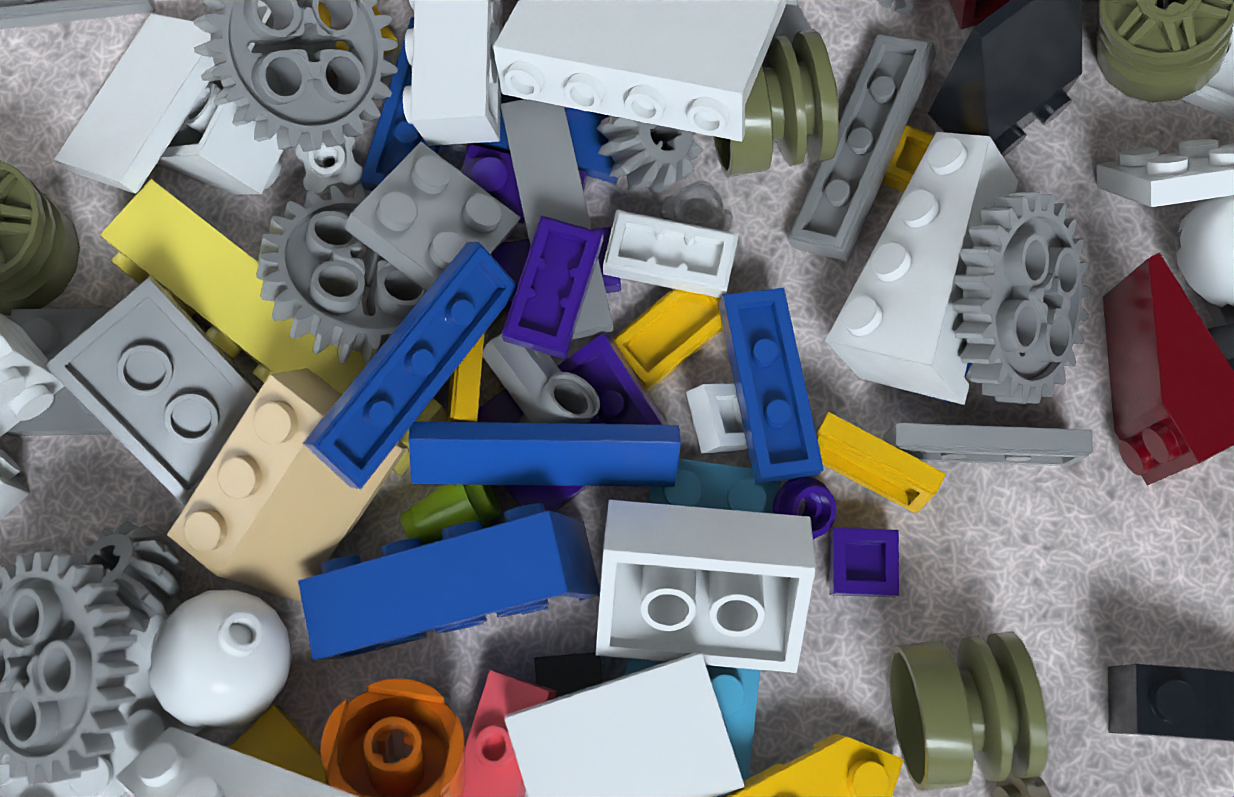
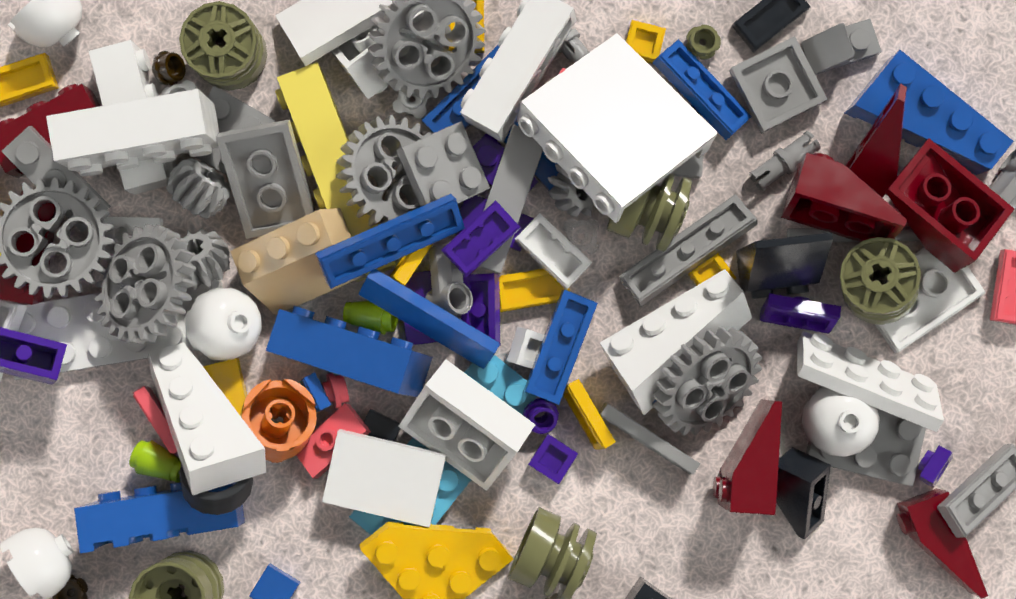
camera: 30 degrees right, 10 degrees up
(63, 470) = (198, 188): none -> light grey gear
(423, 669) = (314, 386): none -> blue tile
(462, 660) = (336, 389): none -> coral plate
(1079, 137) = (800, 313): none -> dark purple plate

